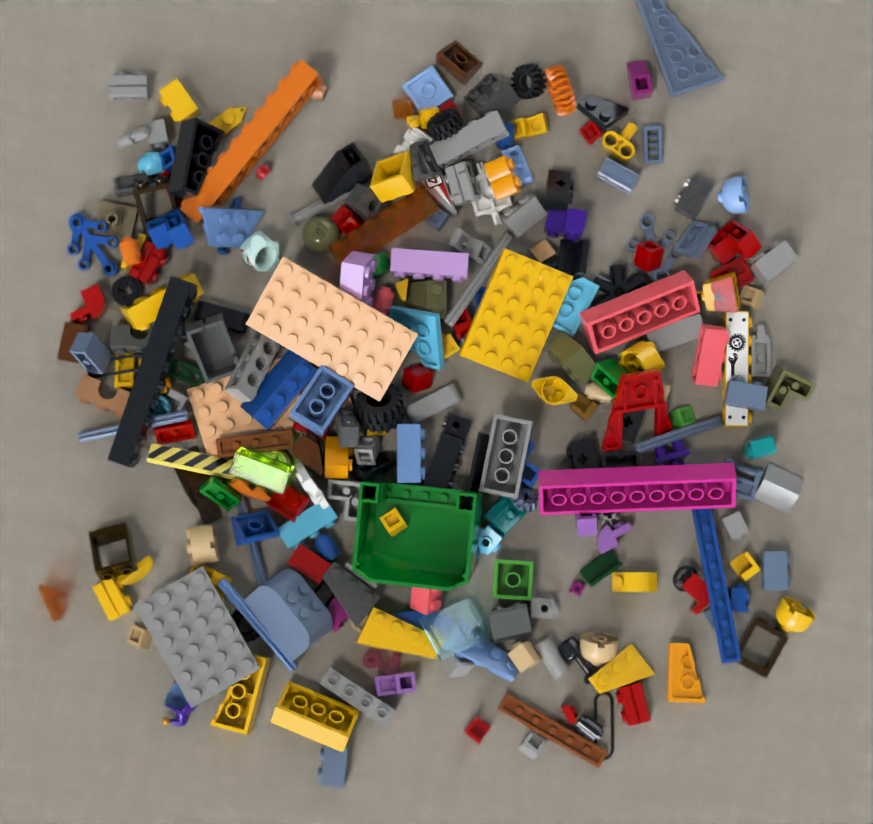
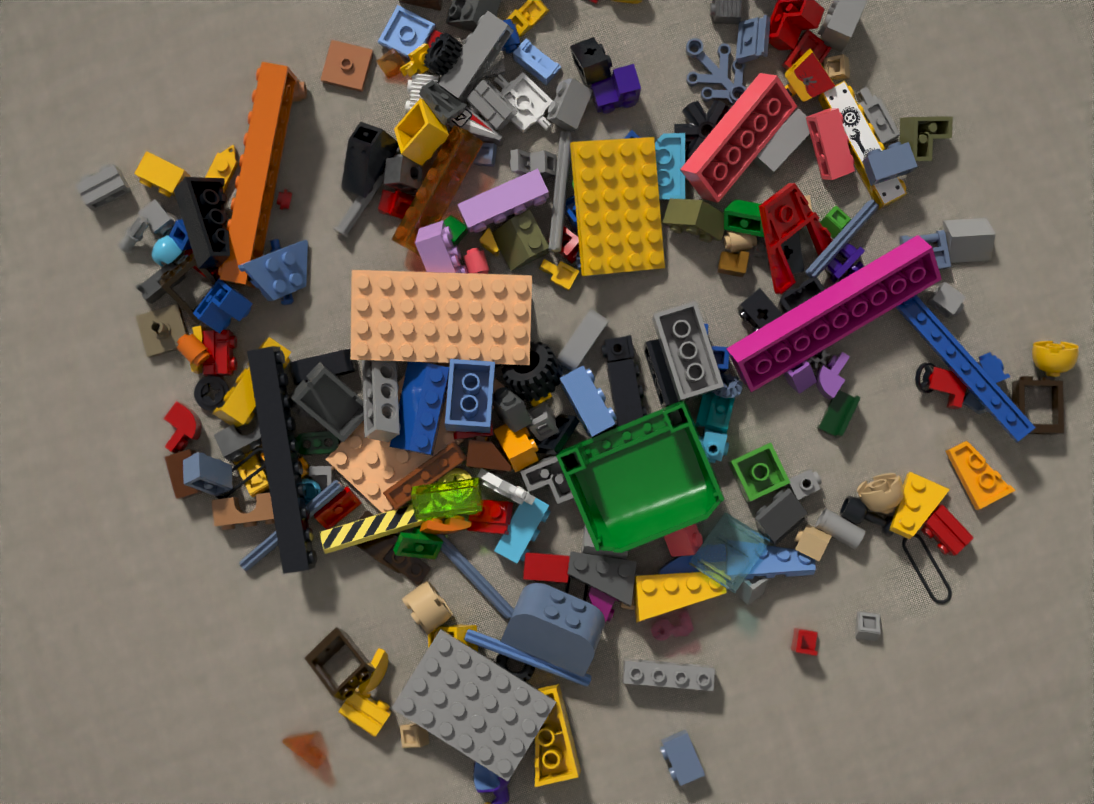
camera: 30 degrees left, 0 degrees up
(91, 242) = (149, 364): blue plant -> none
(254, 527) = (470, 561): blue slope -> none
(260, 252) = (326, 281): light aqua piece -> none
(315, 716) = (638, 719): yellow brick -> none
(320, 234) = (376, 231): olive cylinder -> none
(327, 547) = (554, 541): blue brick -> none
(367, 91) = (347, 65): none -> nougat plate
(393, 522) = (609, 479): yellow slope -> none
(395, 683) = (698, 641): medium lavender brick -> none
(417, 378) = (552, 322): red panel -> none
(429, 339) = (546, 279): medium azure plate -> none
(502, 177) = (529, 76): light orange brick -> none
(543, 251) = (608, 130): light nougat slope -> none
(552, 730) = (879, 601): dark orange tile -> none
(554, 390) = (696, 261): yellow hat -> none
(569, 712) = (887, 574): red plate -> none
(573, 257) = (643, 119): black panel -> none
(577, 588) = (825, 446): magenta piece -> none
(589, 728) = (916, 578): black brick -> none
(617, 176) = (641, 17): sand blue brick -> none
(634, 581) = (879, 409): yellow brick -> none
(641, 357) = (765, 182): yellow brick -> none
(648, 256) = (715, 79): red panel -> none
(744, 566) = (978, 334): yellow panel -> none
(759, 447) = (930, 208): teal brick -> none
(774, 570) = (1011, 322): sand blue brick -> none

